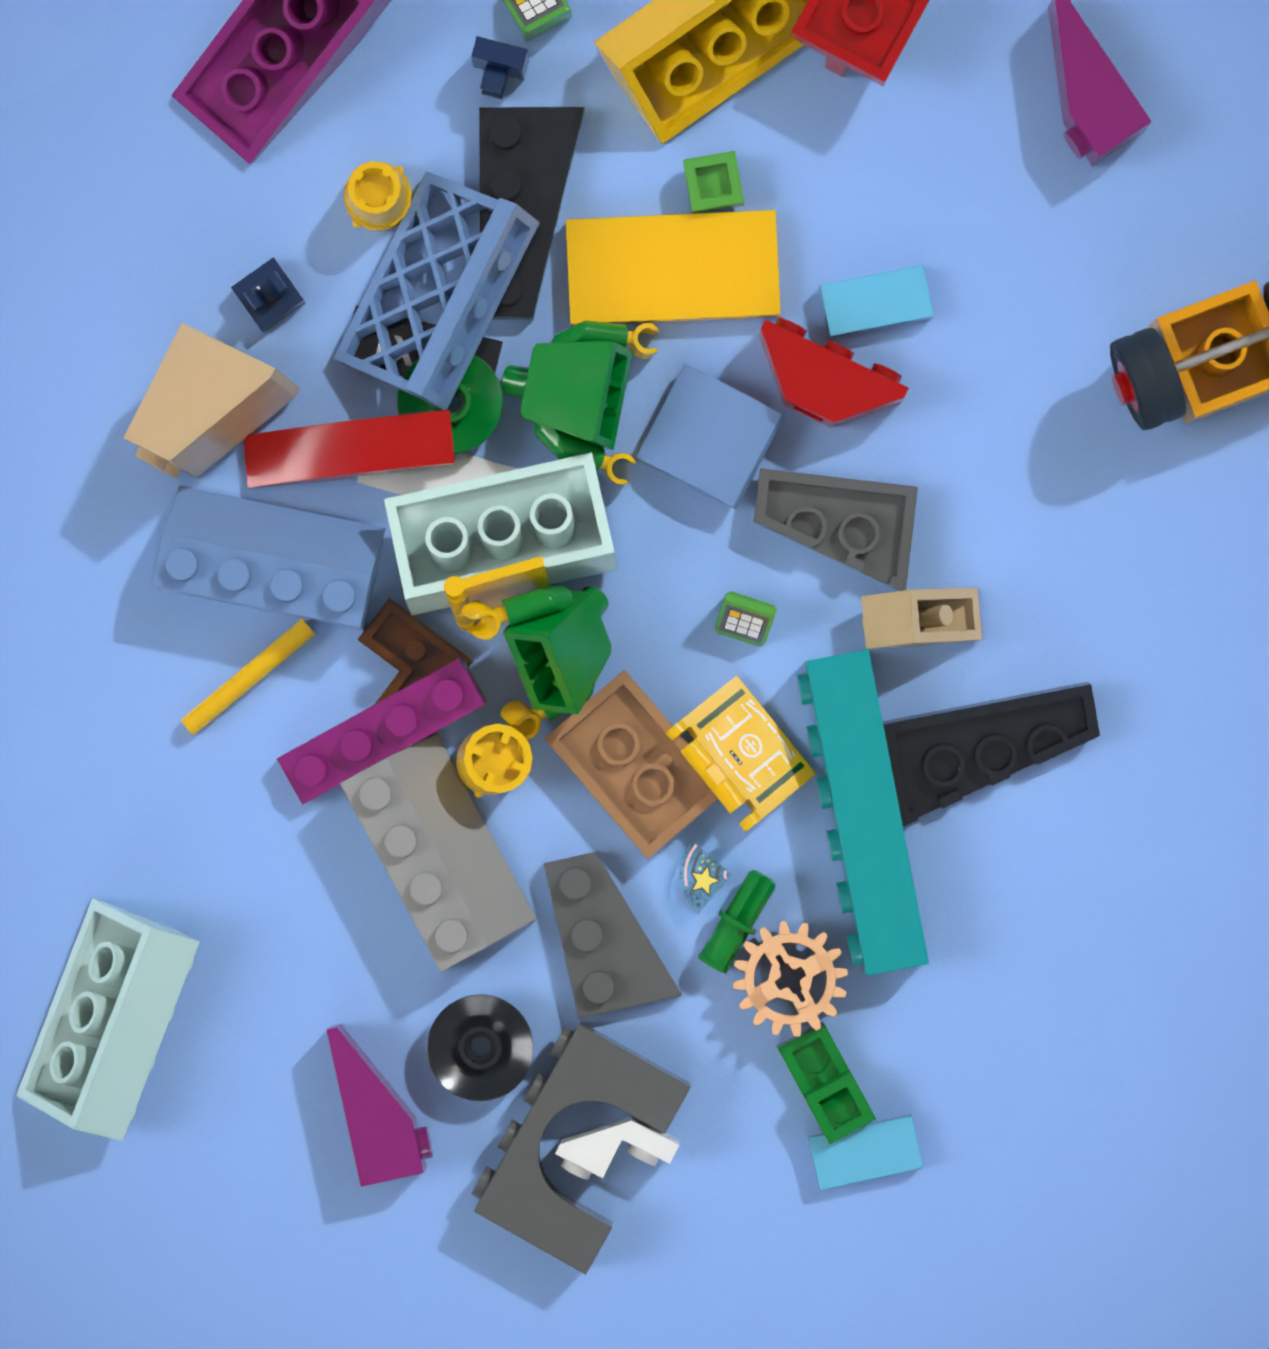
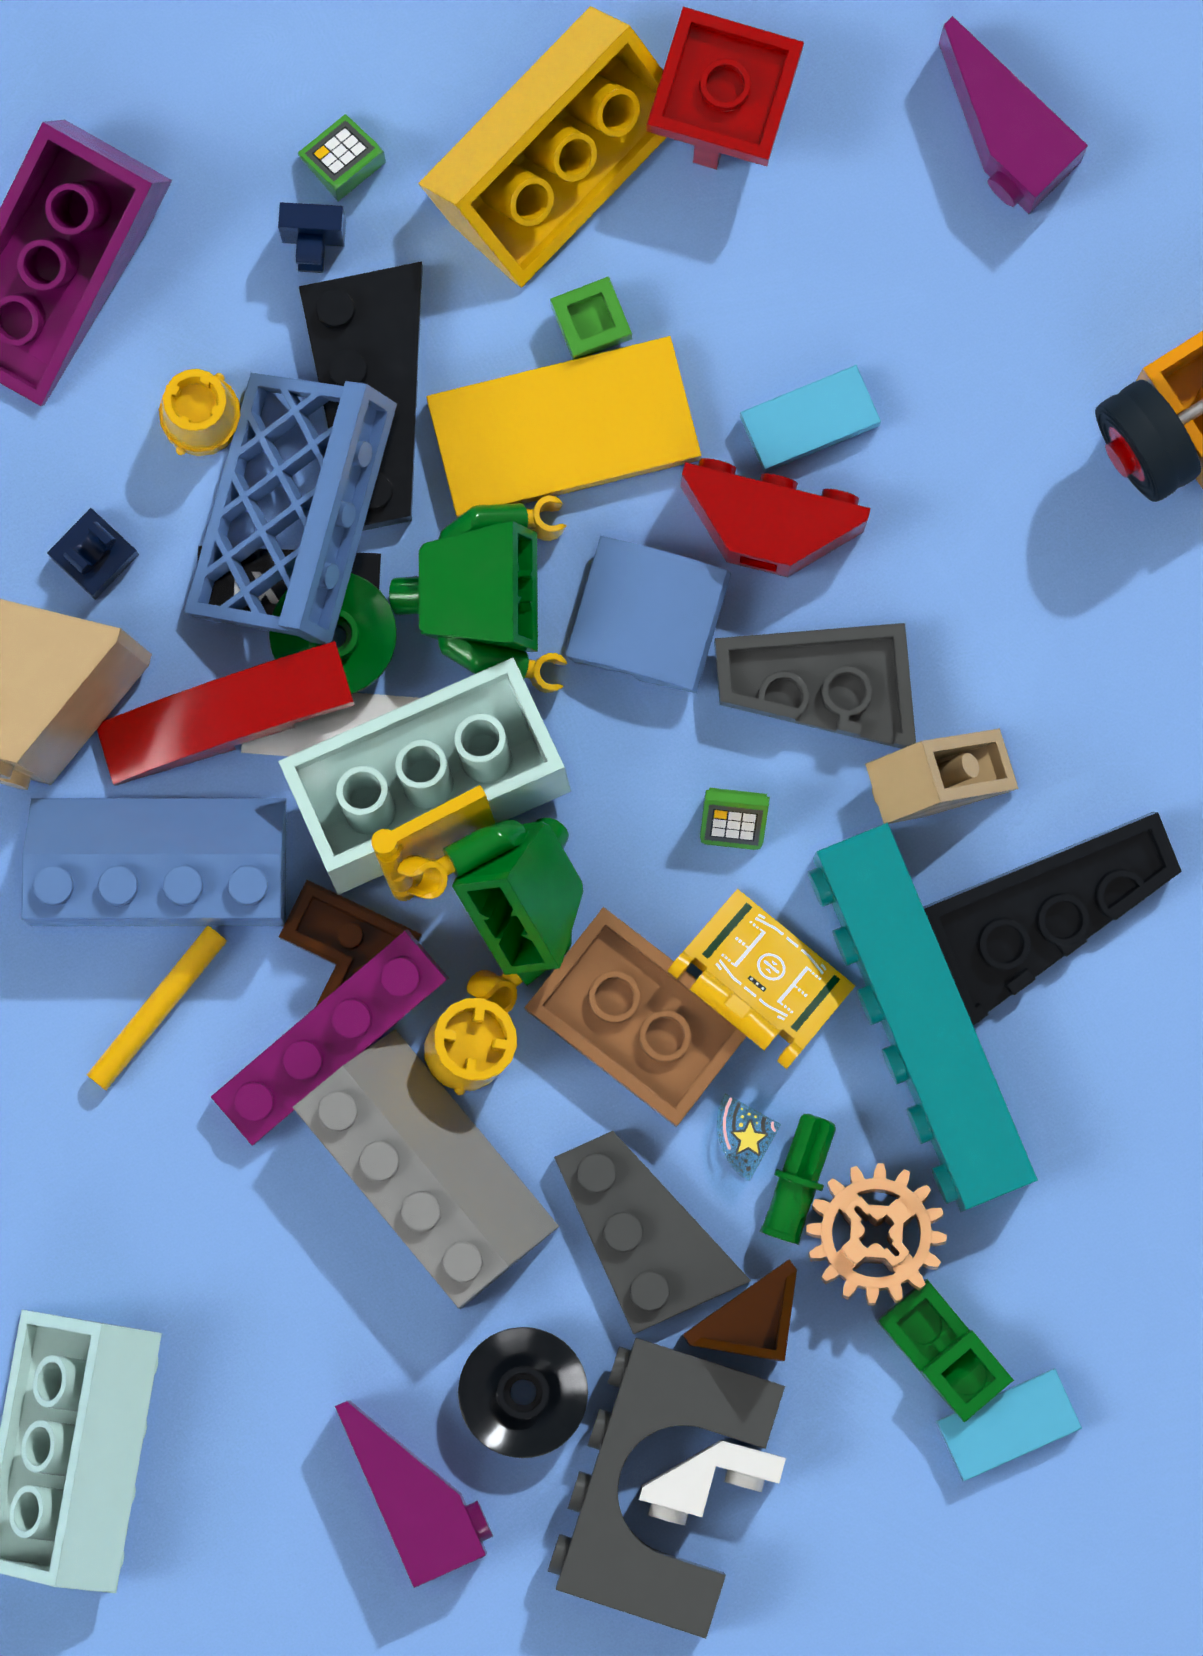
camera: 15 degrees left, 5 degrees down
(676, 1028) = (753, 1321): none -> reddish brown slope

